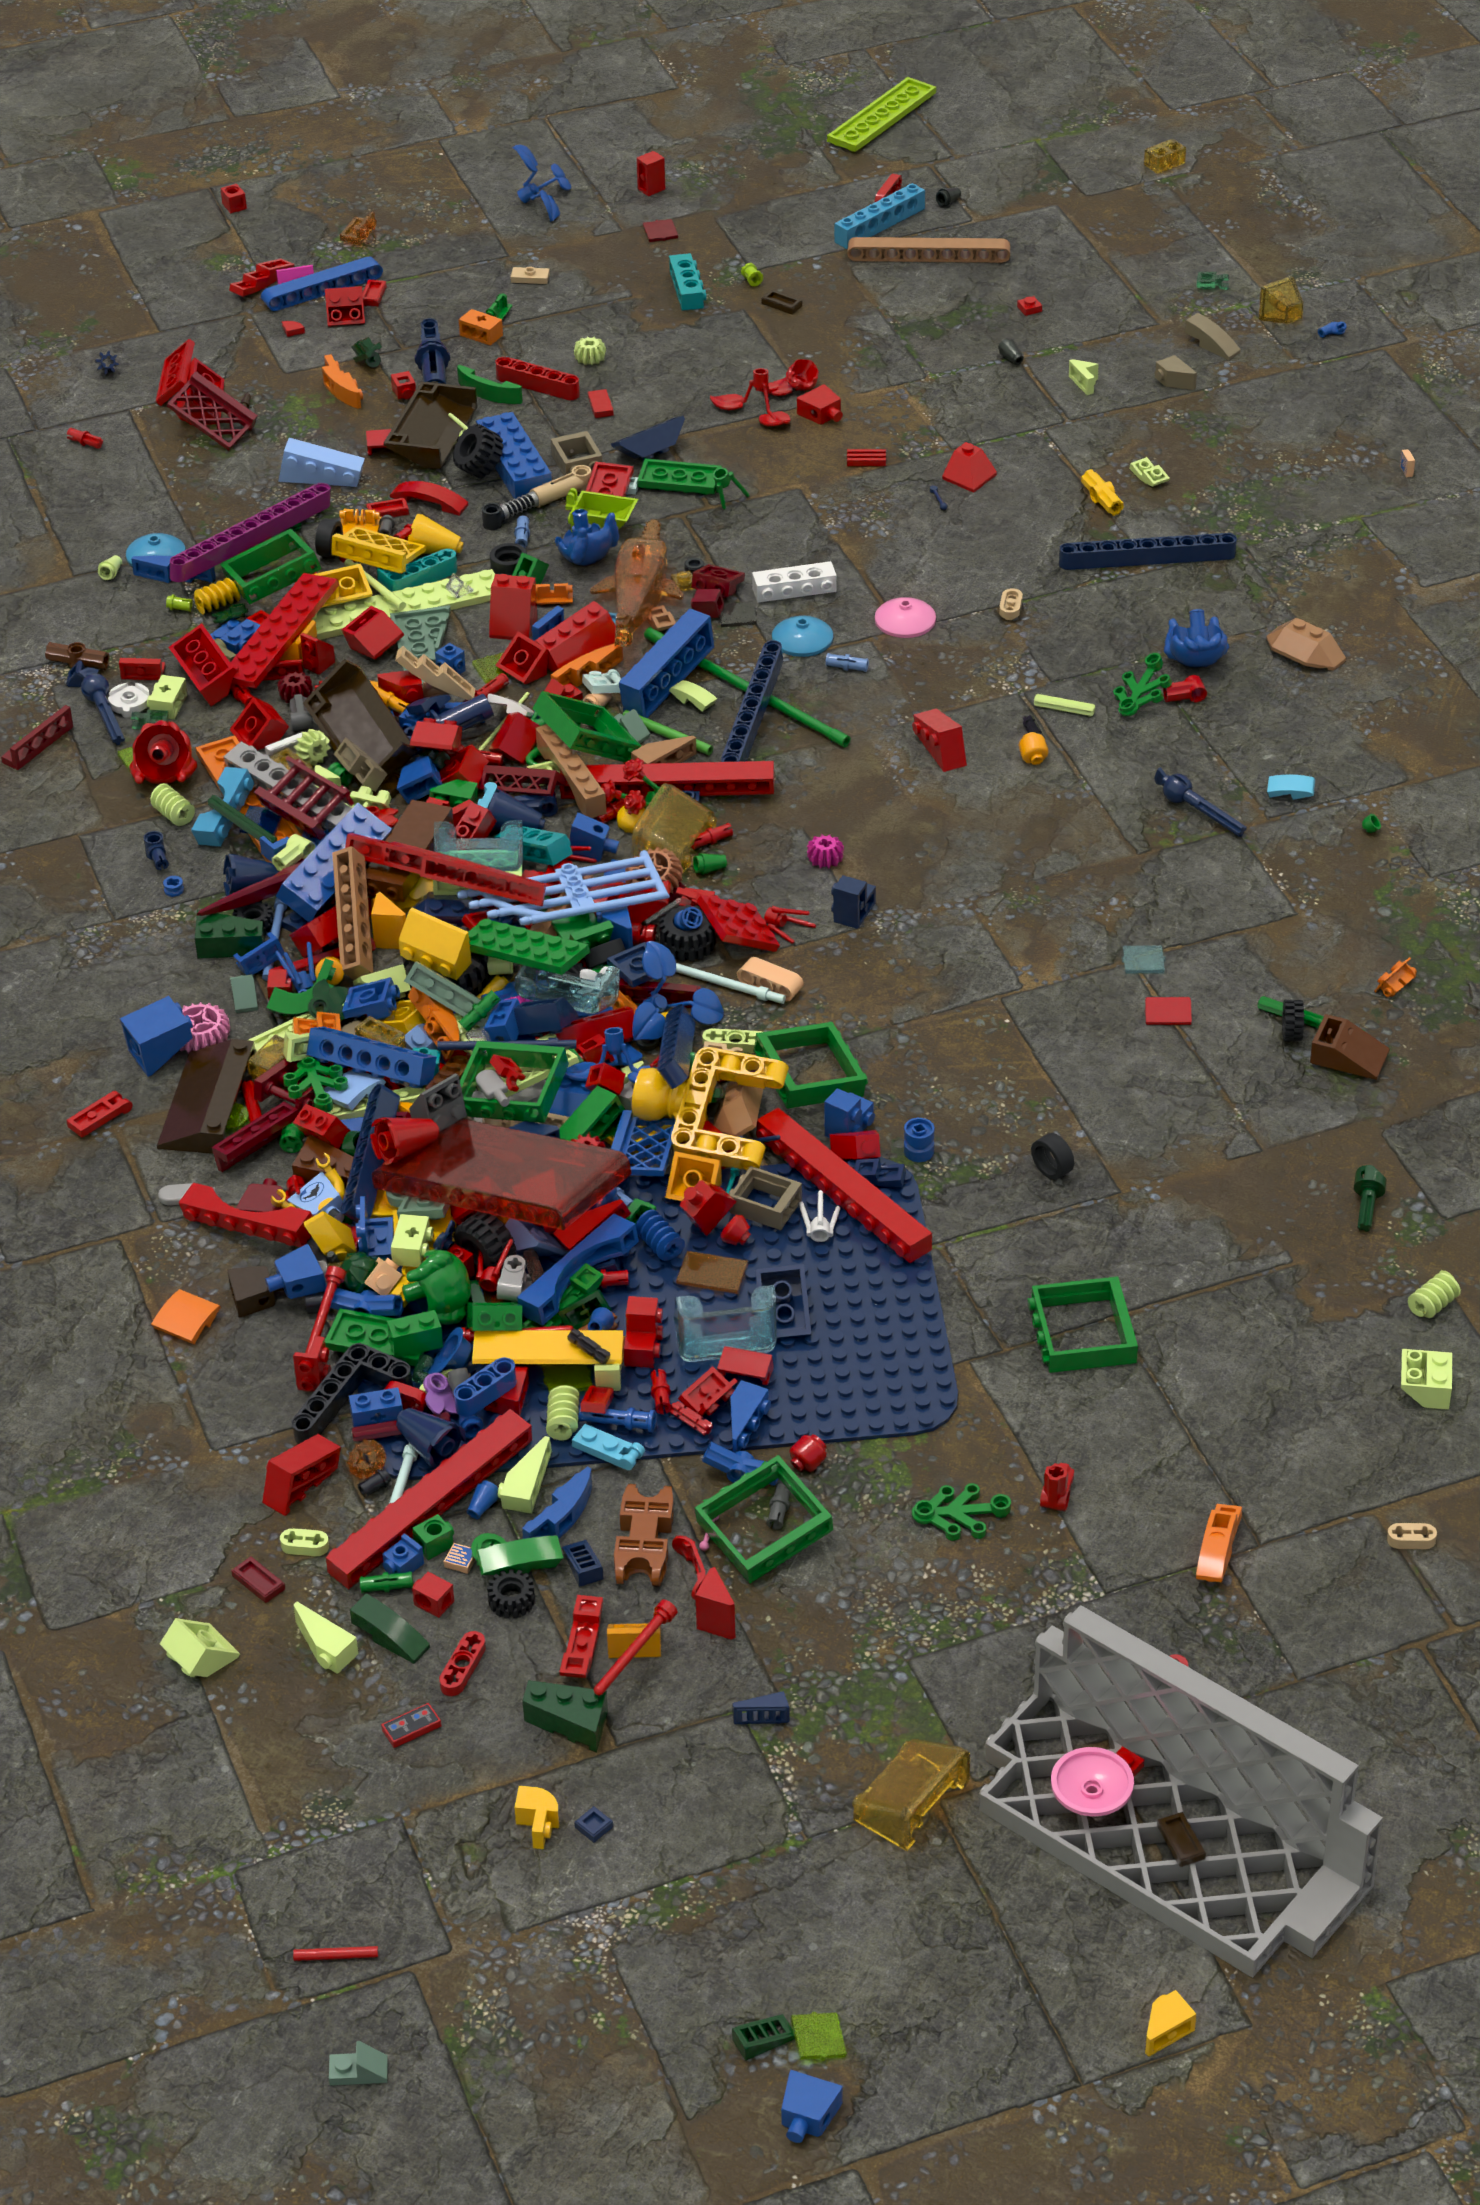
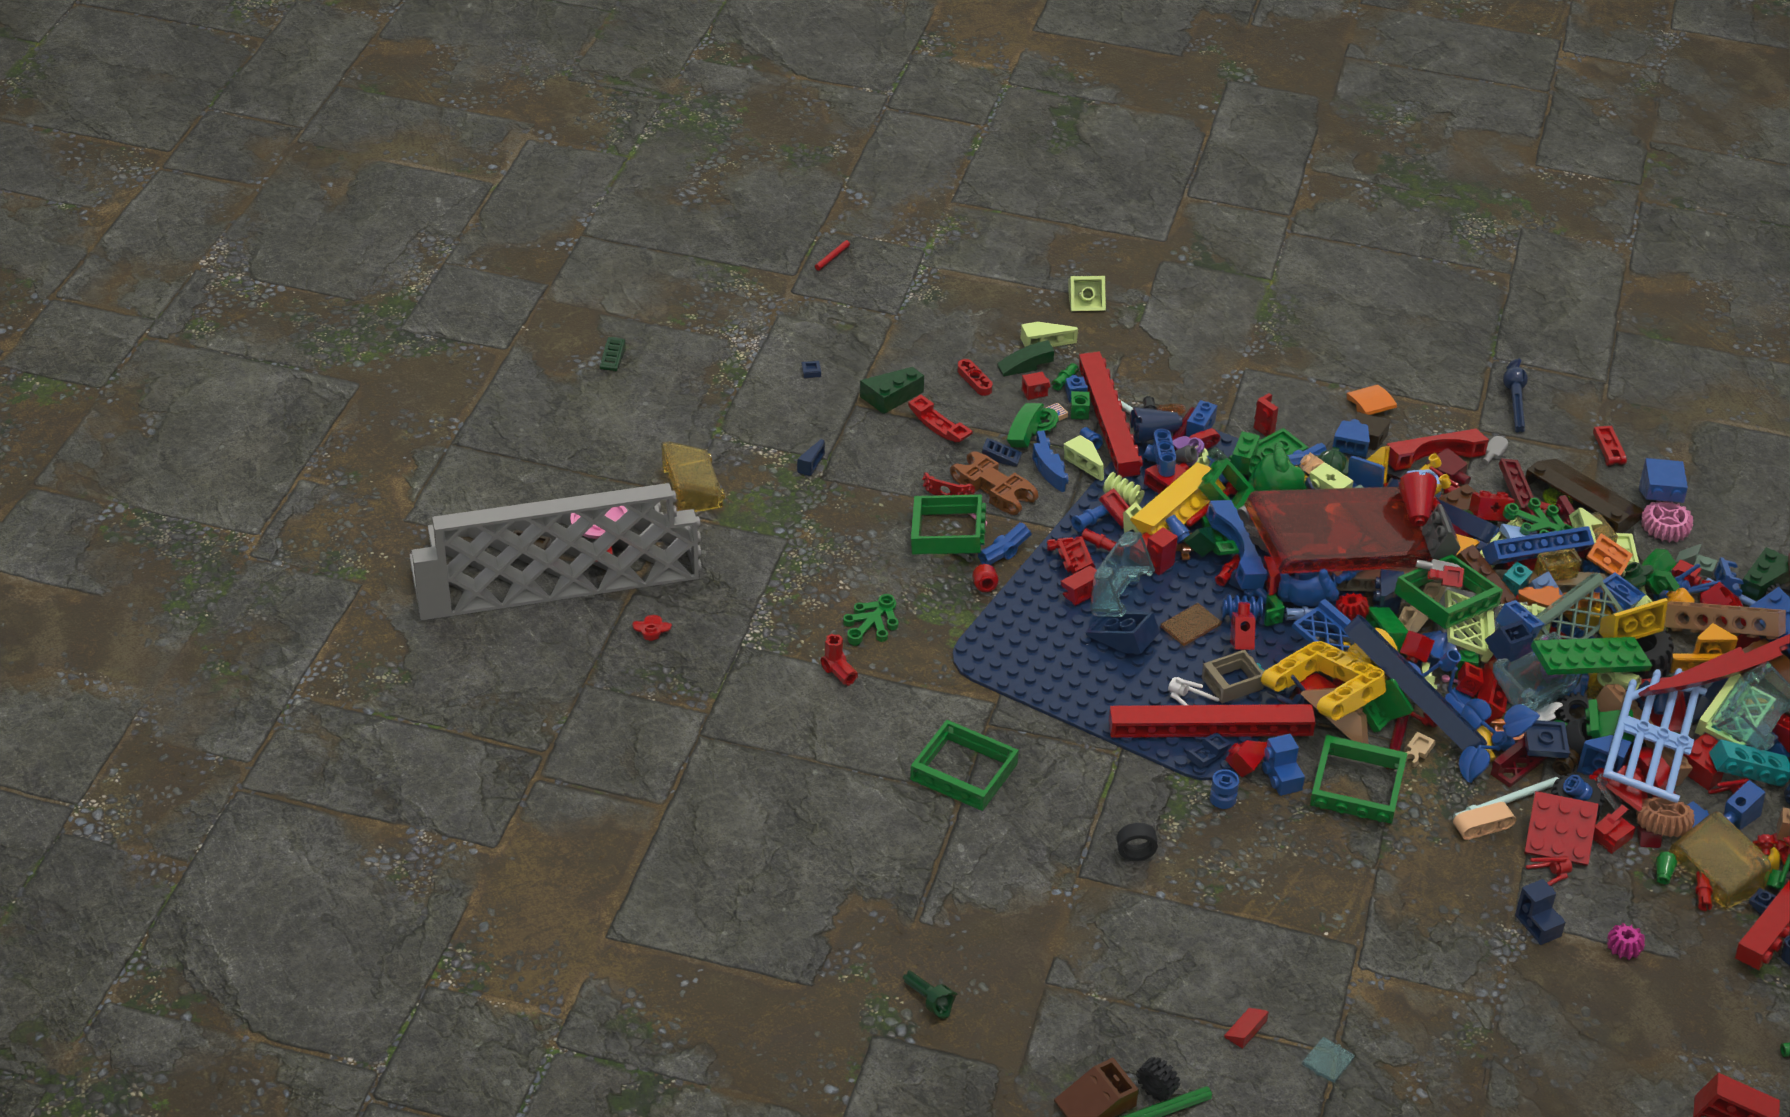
camera: 125 degrees right, 0 degrees up
(47, 1218) = (1515, 380): none -> dark blue piece
(258, 1579) = (1120, 338): dark red tile -> none
(297, 1470) = (1185, 377): red wedge -> none
(304, 1542) = (1130, 364): yellowish green beam -> none
(334, 1276) = (1328, 442): red piece -> none
(353, 1367) = (1236, 417): black beam -> none
(361, 2067) = (755, 231): sand green slope -> none
(411, 1725) = (951, 341): tile -> none
(469, 1045) = (1478, 634): dark blue bar -> none
(479, 1011) = (1537, 607): green pin -> none
(511, 1582) = (1002, 407): black tyre -> none
(537, 1809) = (838, 351): yellow brick -> none
(588, 1346) = (1152, 503): black axle -> none
(607, 1447) = (1077, 500): medium azure plate -> none
(622, 1635) = (920, 439): light orange slope -> none
(664, 1613) = (908, 433): red piece -> none
(688, 1171) = (1280, 651): light orange slope -> none
(715, 1607) = (900, 470): red slope -> none
(728, 1034) = (1431, 760): yellowish green beam -> none
(736, 1231) = (1212, 644): red cone -> none
(747, 1408) = (1043, 562): blue slope -> none
(809, 2105) = (555, 344): blue torso -> none
(818, 2036) = (589, 372): clear neon green piece -> none
(1169, 2021) = (440, 484): yellow slope -> none
(1217, 1542) = (718, 704): orange slope -> none
(1411, 1536) = (624, 805): tan beam -> none
(1427, 1377) = (732, 896): yellowish green slope -> none
(1434, 1295) = (800, 958): yellowish green piece -> none

